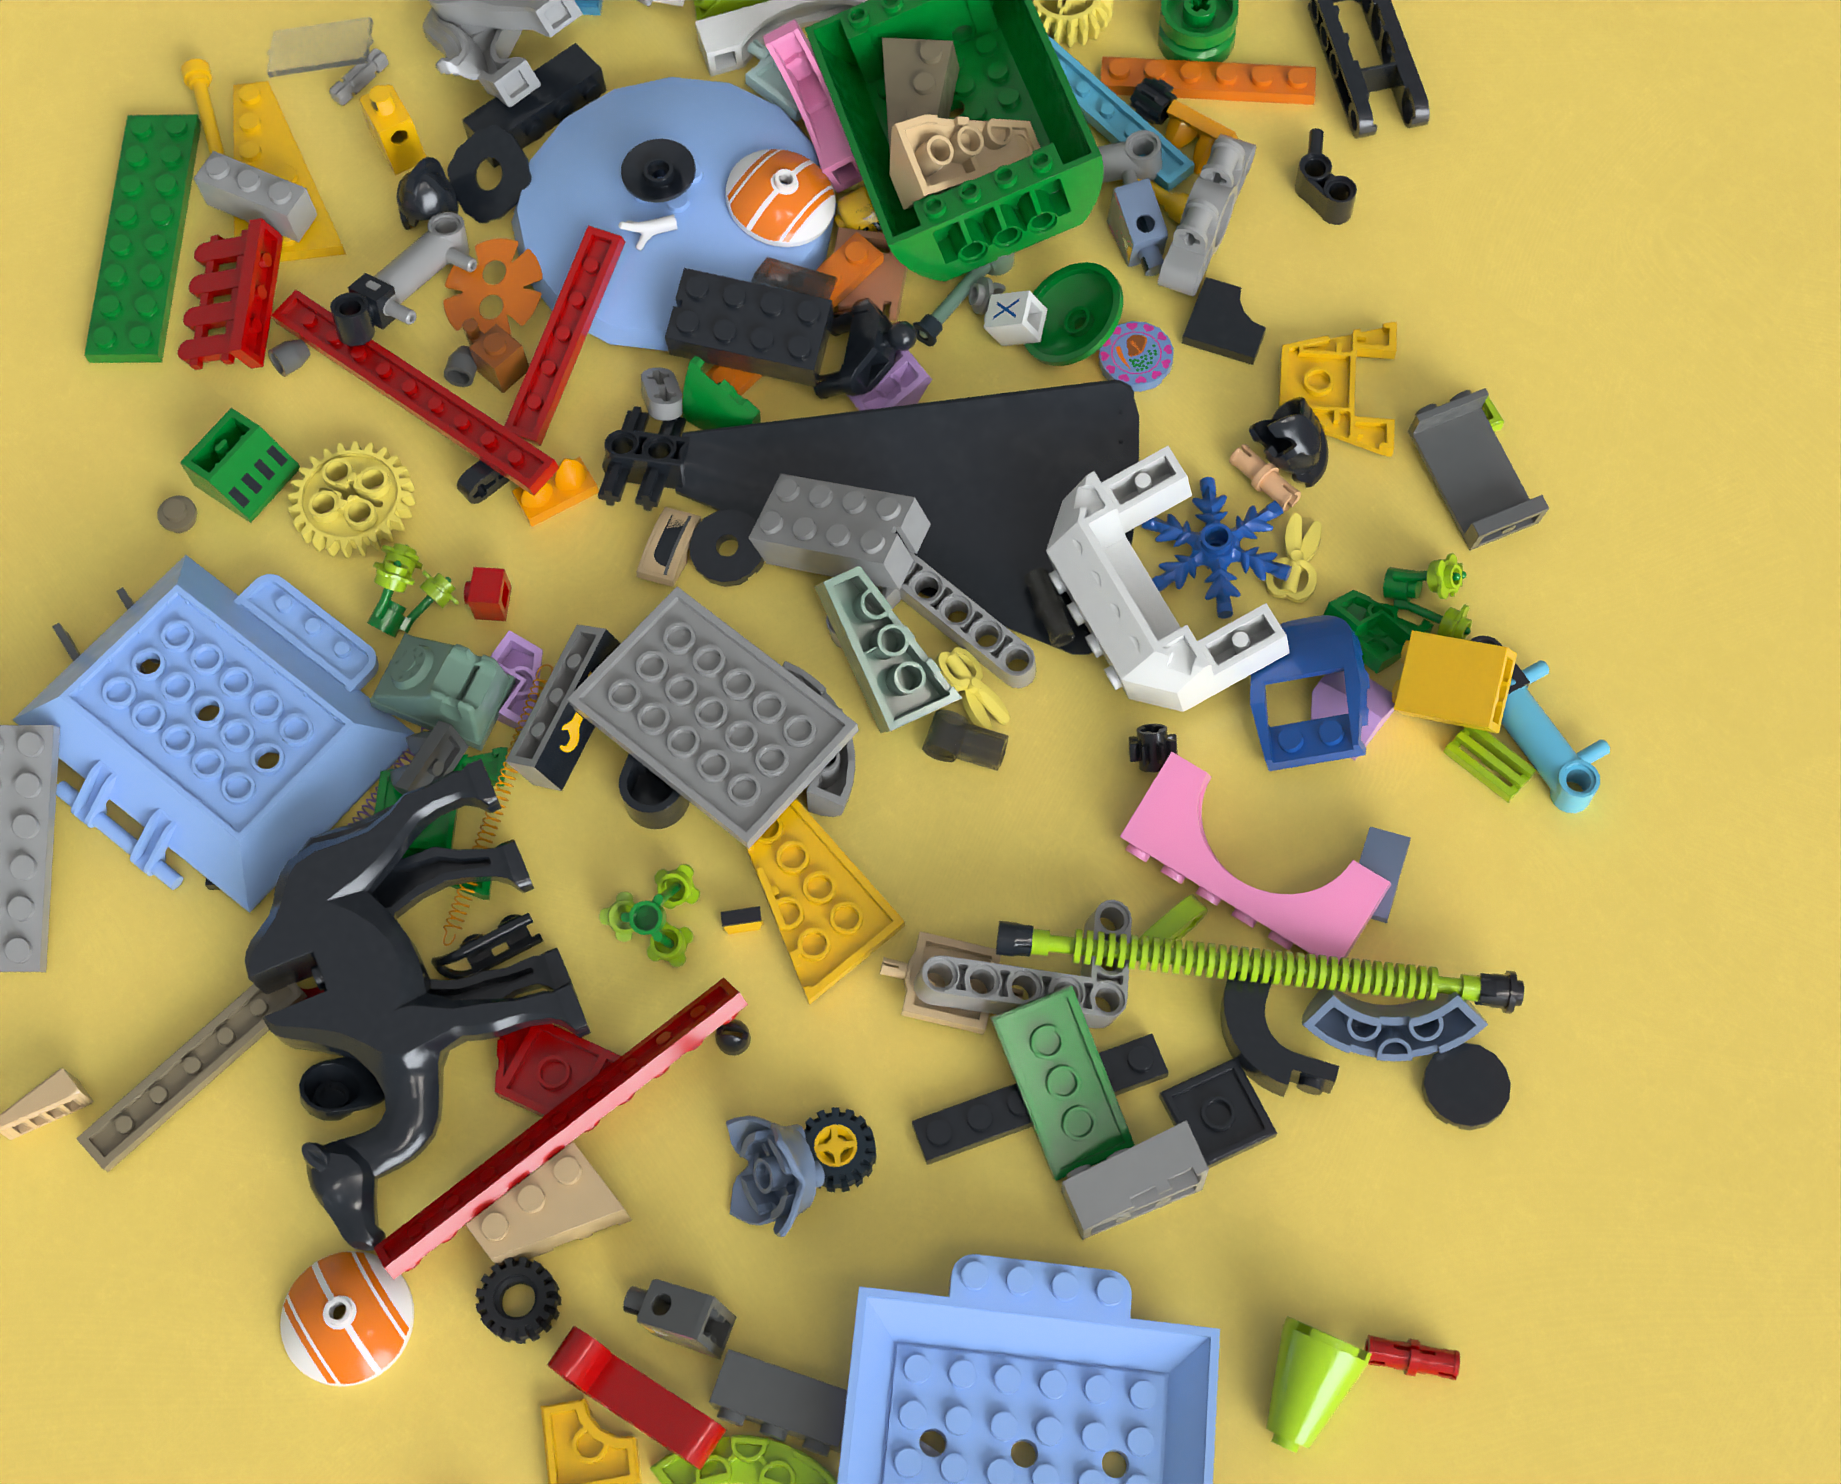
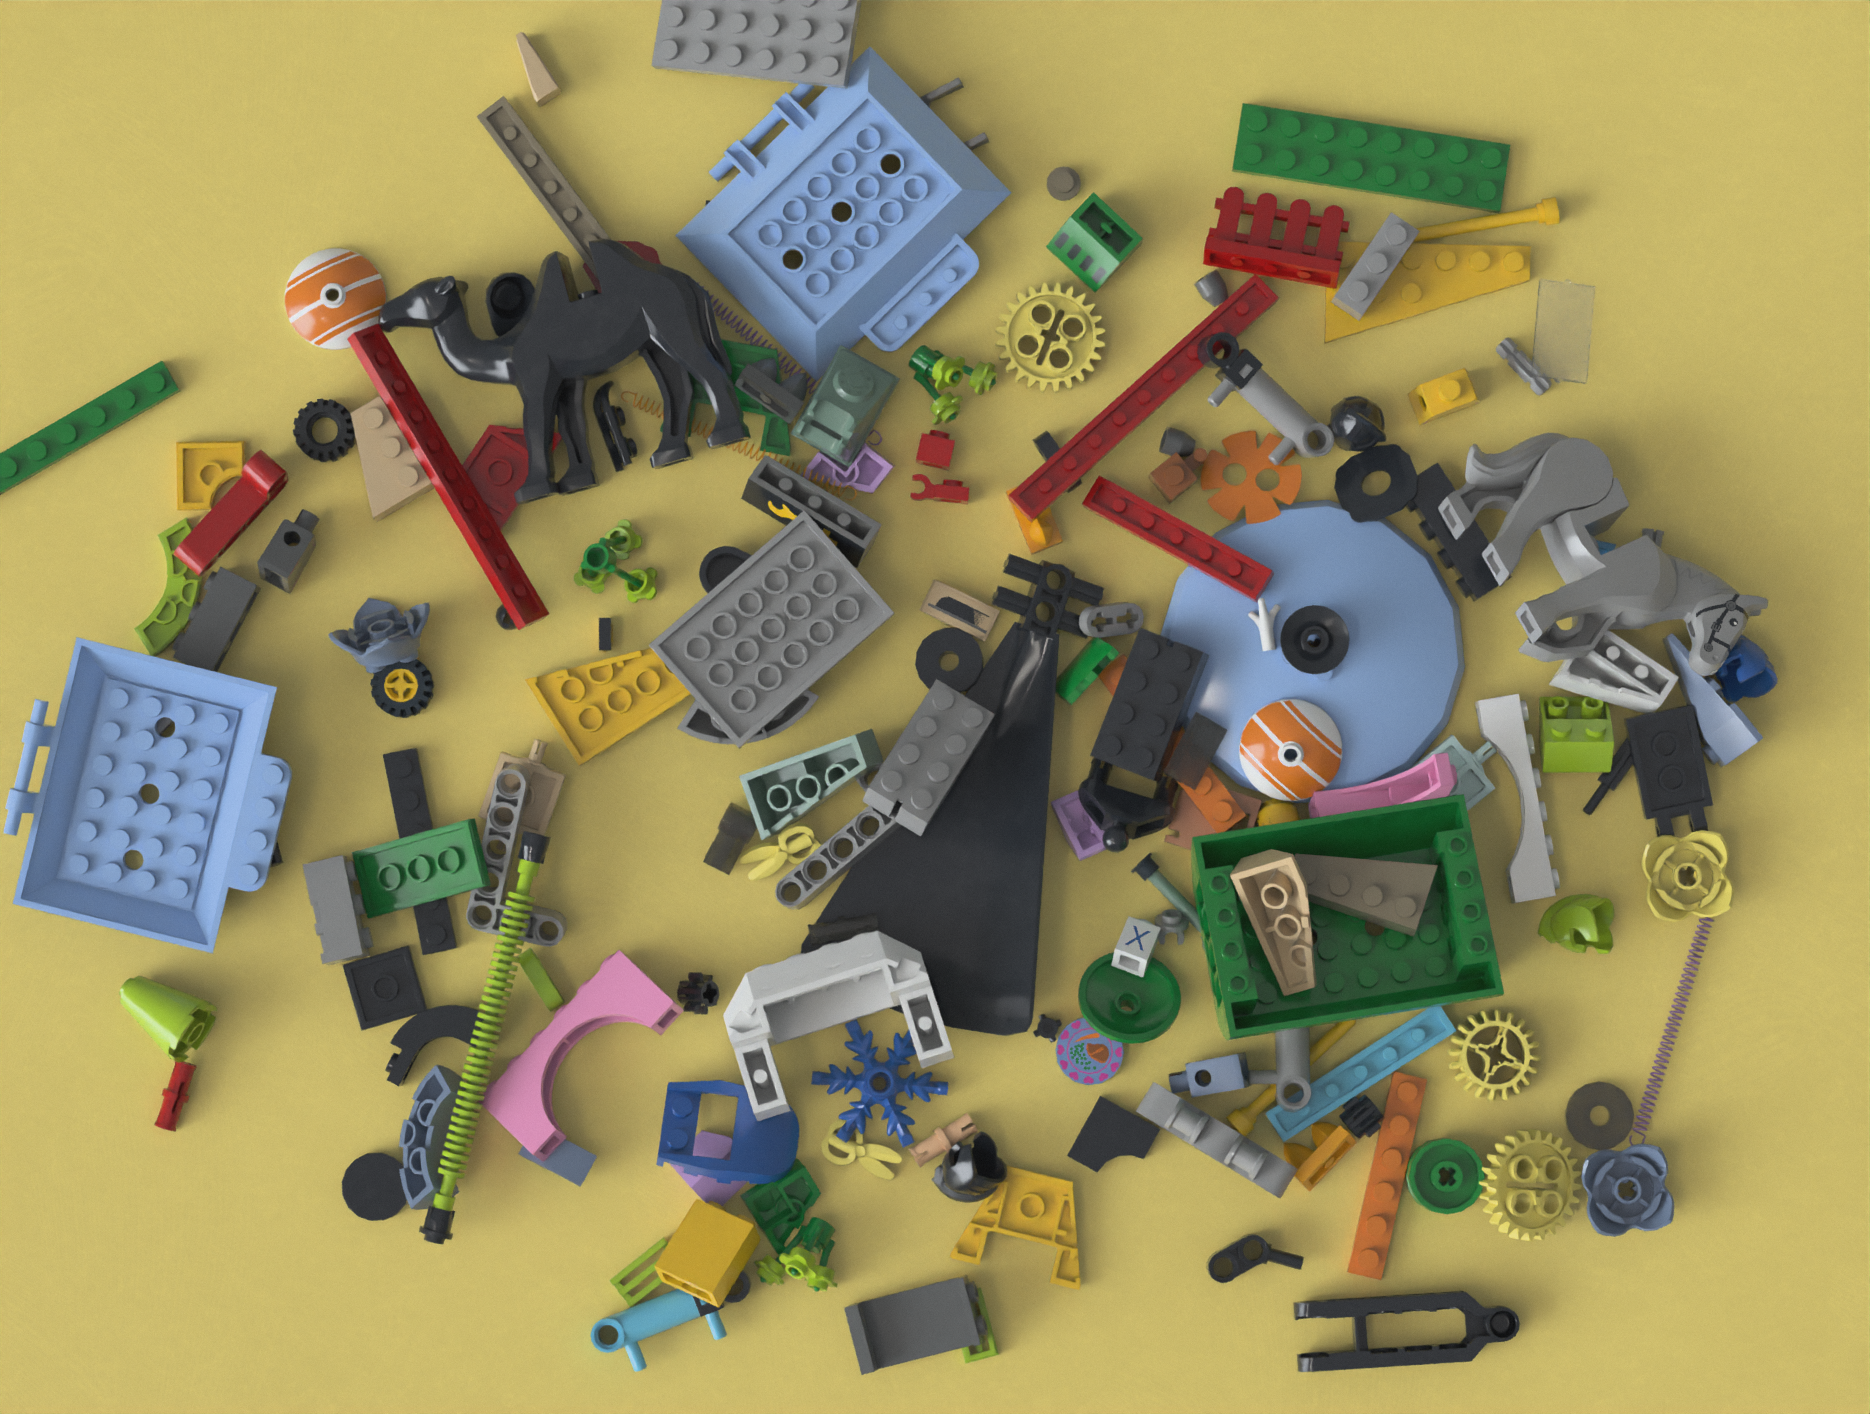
camera: 95 degrees right, 20 degrees up
(534, 573) = (950, 492): none -> red plate

